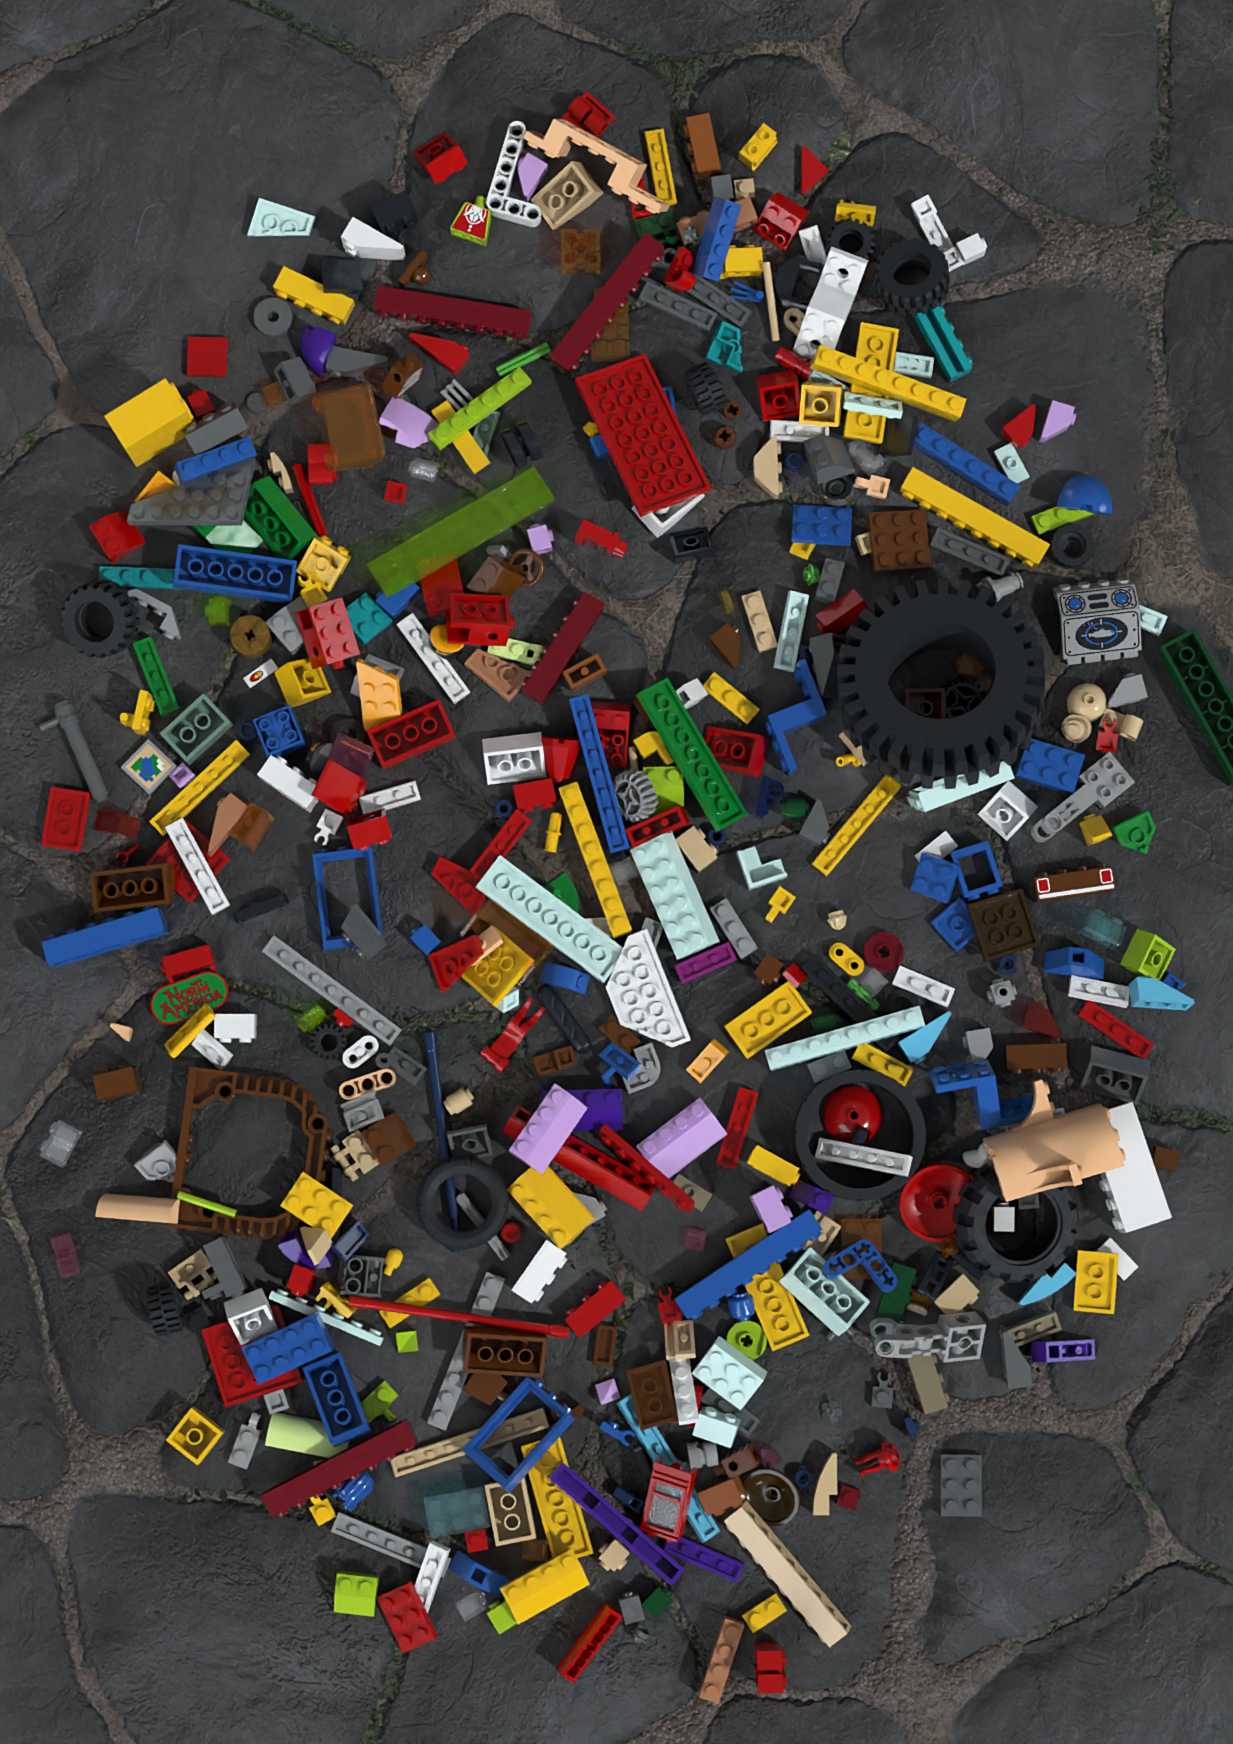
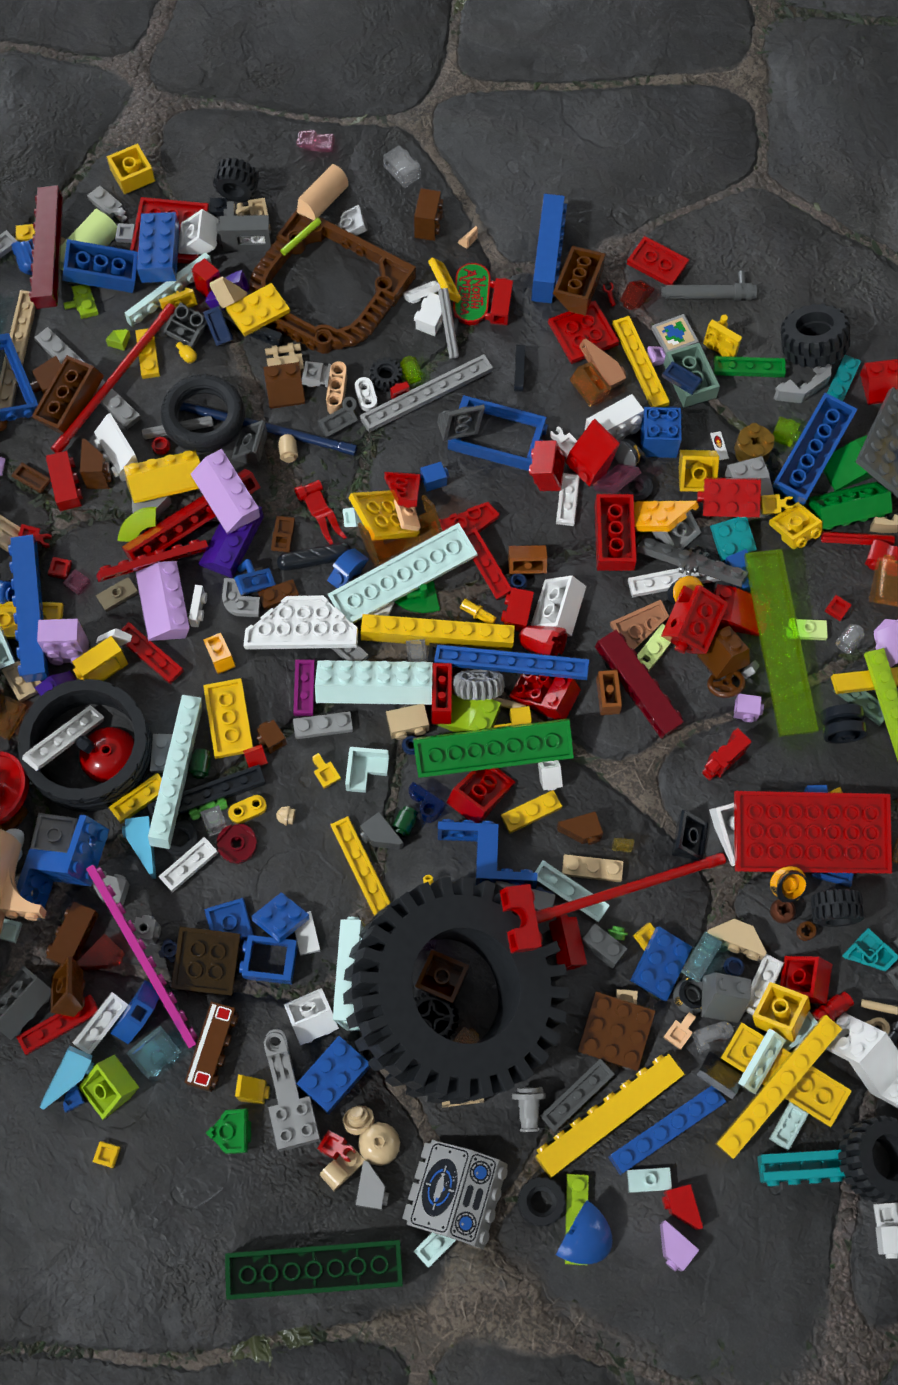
camera: 115 degrees right, 15 degrees down
(197, 866) = (575, 331): white plate -> none
(211, 733) = (682, 378): none -> dark blue tile
(243, 1001) = (448, 323): none -> light grey axle
(412, 646) = (692, 561): none -> dark grey hinge
(428, 509) = (812, 629): none -> yellowish green plate
(478, 807) = (527, 559): none -> dark orange brick
(570, 1281) = (94, 467): none -> reddish brown slope
(607, 1205) = (136, 523): none -> lime tile
(677, 1102) = (196, 612): none -> white plate
(687, 1264) = (60, 568): none -> red tile
(701, 438) = (788, 884): none -> light orange piece
(742, 1164) = (118, 635): none -> white tile
(801, 491) = (701, 957): none -> clear light blue slope
(838, 629) = (709, 862): none -> red piece
(871, 638) = (521, 901): none -> red arch
(951, 1125) = (53, 832): none -> light grey tile
(1023, 986) = (138, 948): none -> dark pink plate
(1087, 1032) = (67, 989): none -> reddish brown slope
(1202, 930) = (106, 1154): none -> yellow tile

